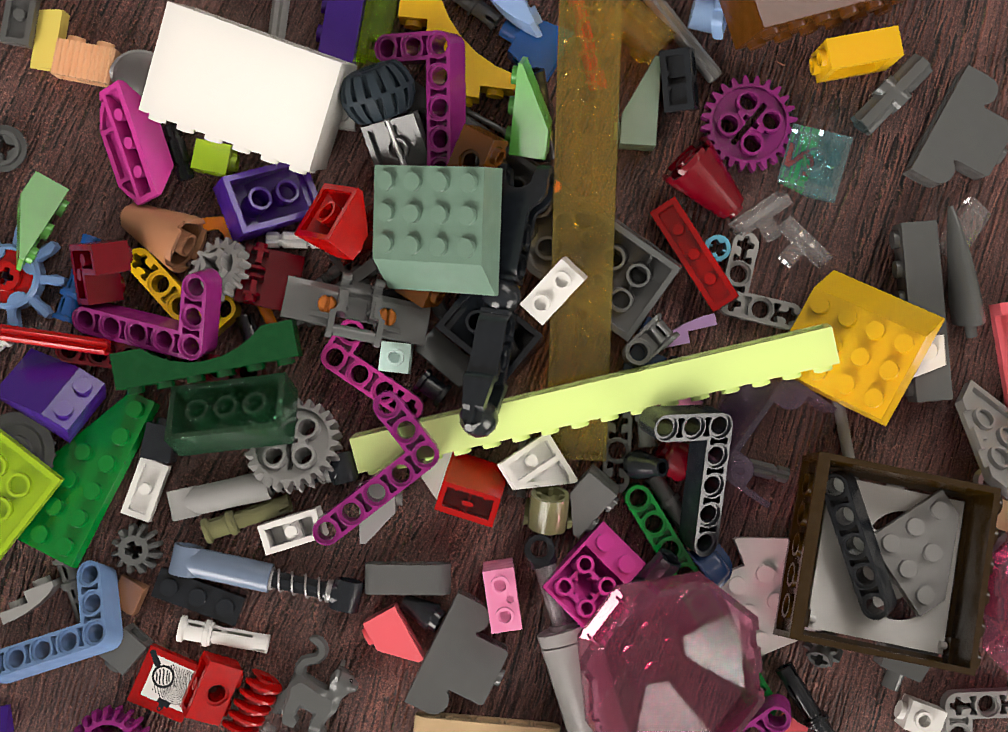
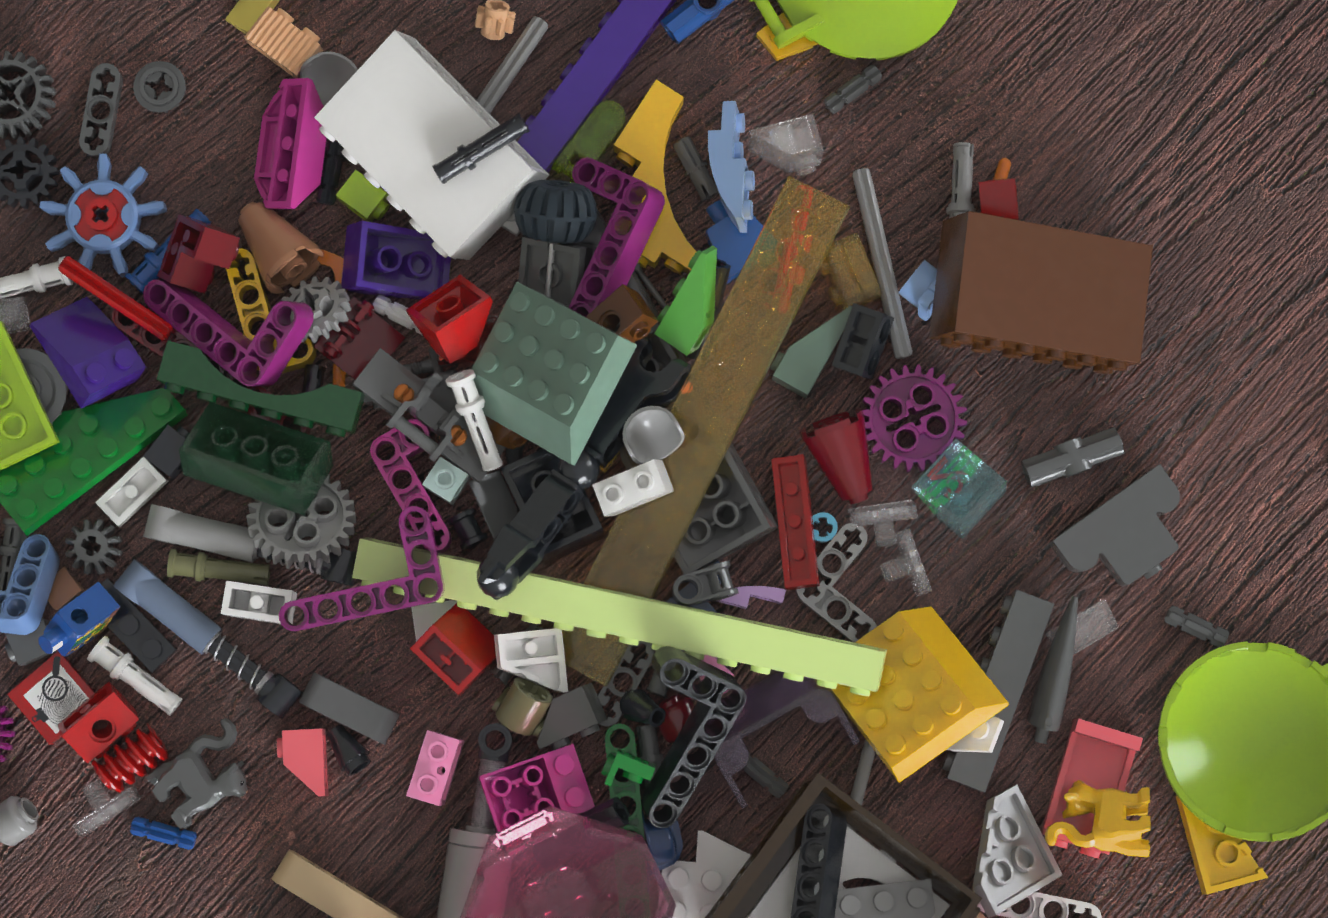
camera: 30 degrees right, 5 degrees down
(36, 210) = (161, 165): bright green slope -> none
(153, 618) = (73, 628): none -> blue torso
(289, 65) = (447, 169): none -> black pin
(375, 521) = (354, 630): light grey slope -> none
(384, 289) = (471, 404): none -> white pin
(459, 658) = (360, 814): dark grey brick -> none
(548, 238) = (652, 434): none -> light grey helmet
(667, 518) = (633, 766): none -> green bracket
(856, 54) = (1051, 400): yellow window -> none

